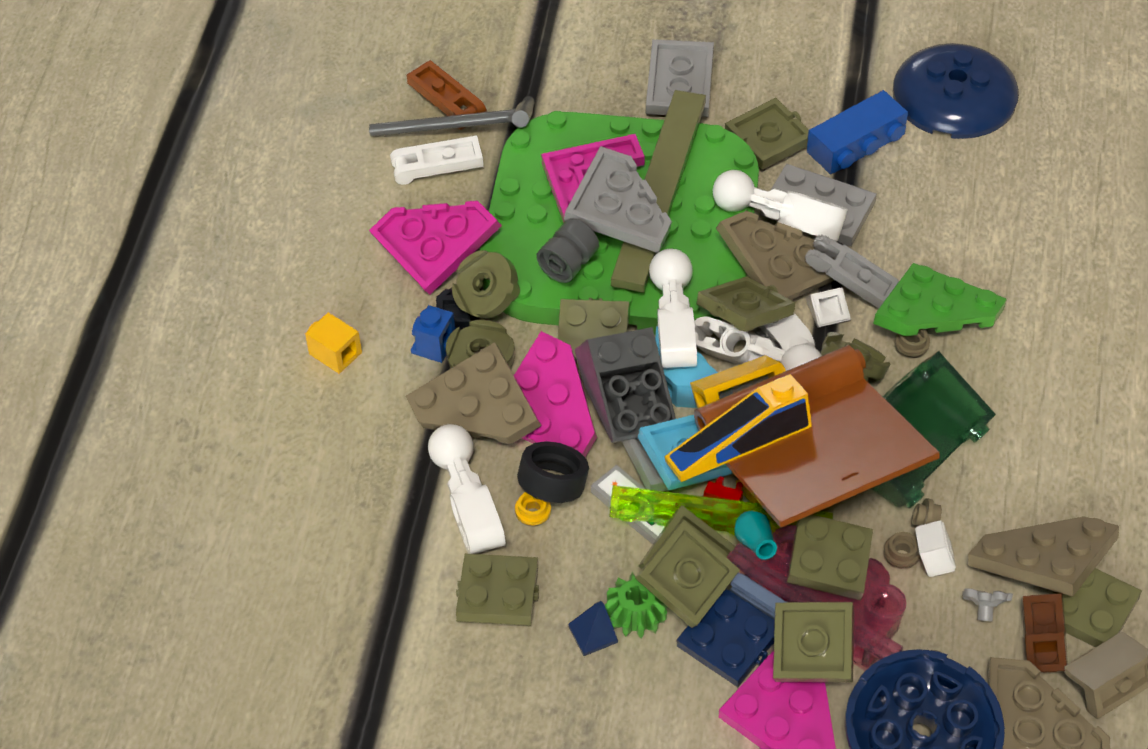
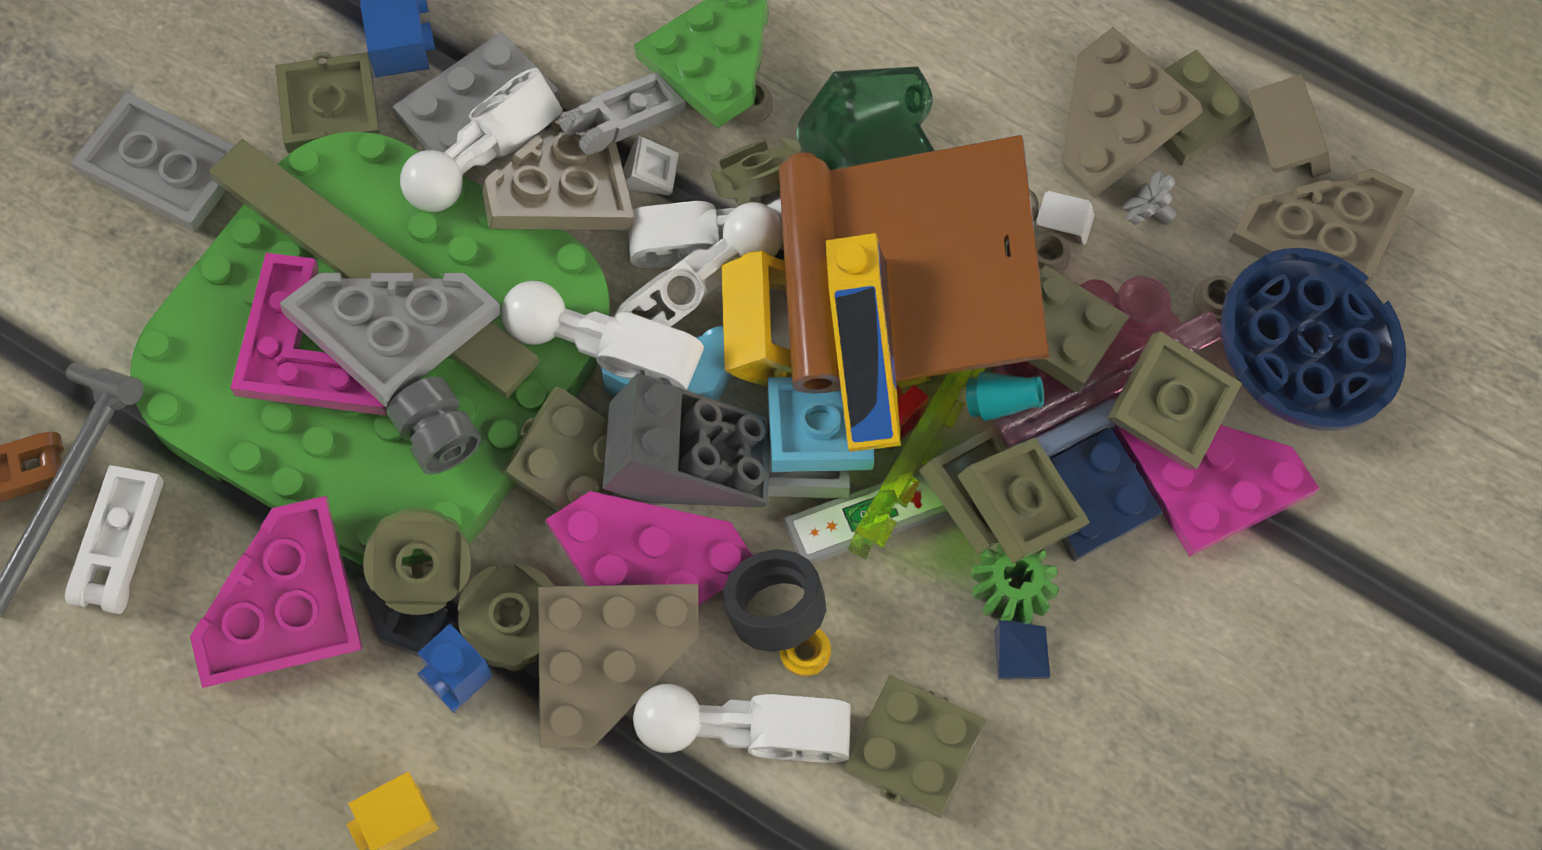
camera: 75 degrees left, 15 degrees up
(746, 303) = (635, 250): olive plate -> none
(1045, 632) = (1217, 166): reddish brown slope -> none

